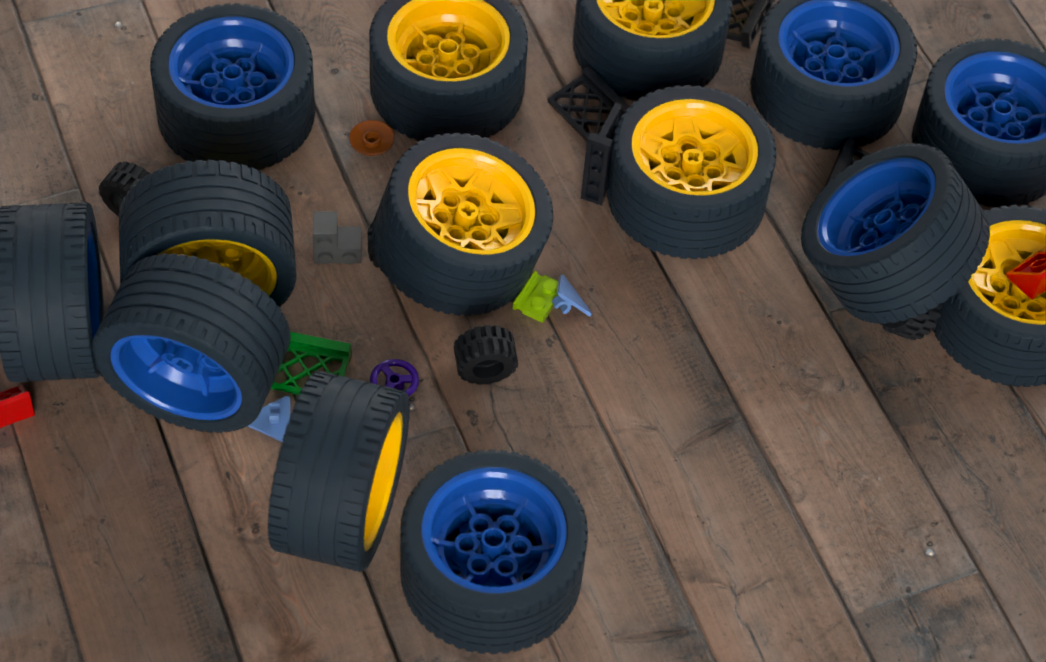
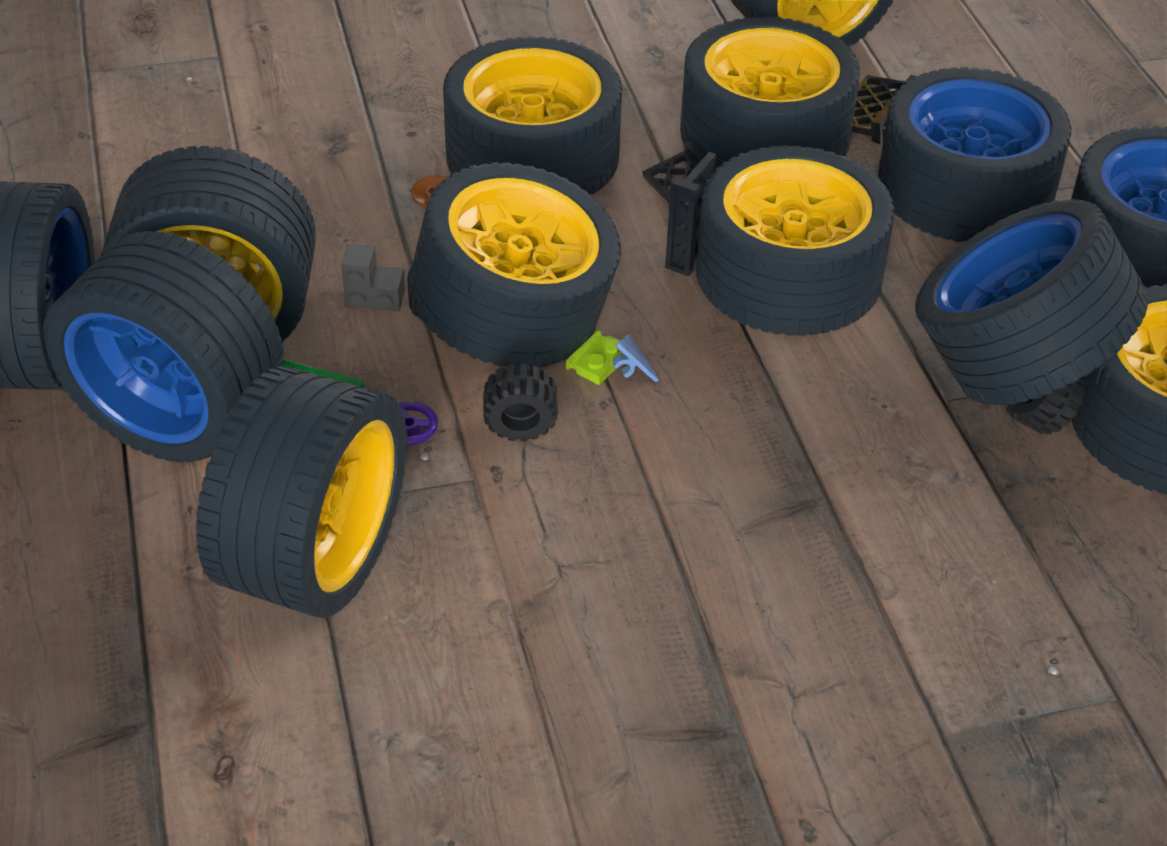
camera: 10 degrees right, 10 degrees down
(216, 91) = (301, 113): wheel -> none
(489, 607) = (458, 616): wheel -> none

